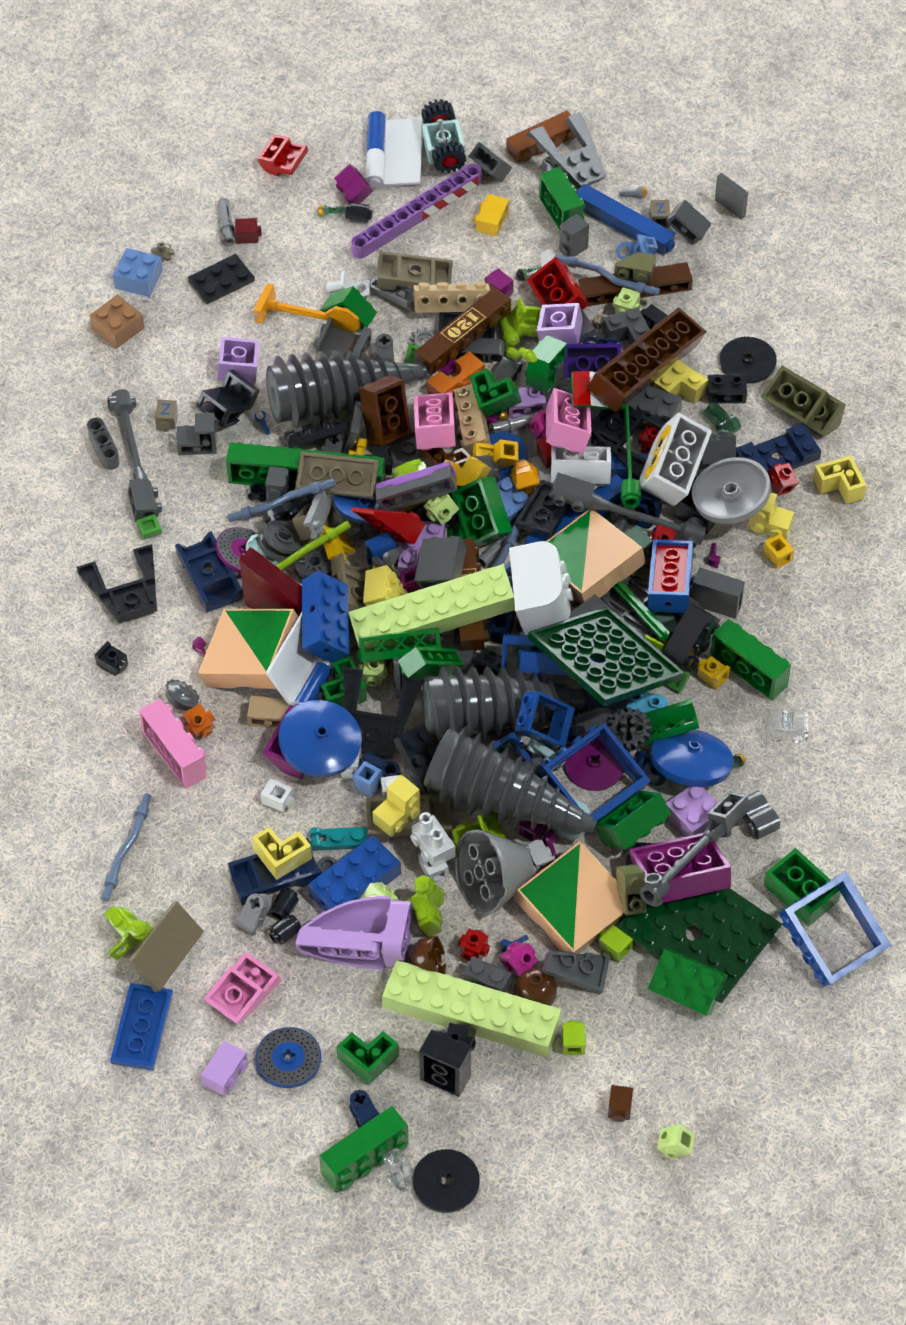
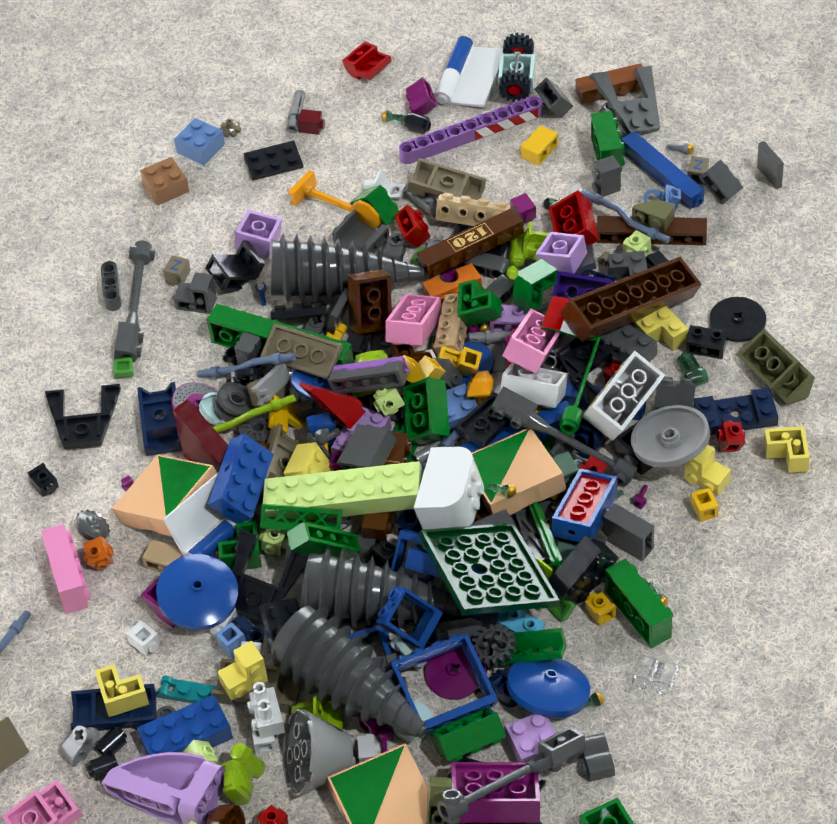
camera: 20 degrees right, 5 degrees down
(395, 323) = (412, 226): none -> red brick
(596, 575) = (508, 490): none -> clear green piece

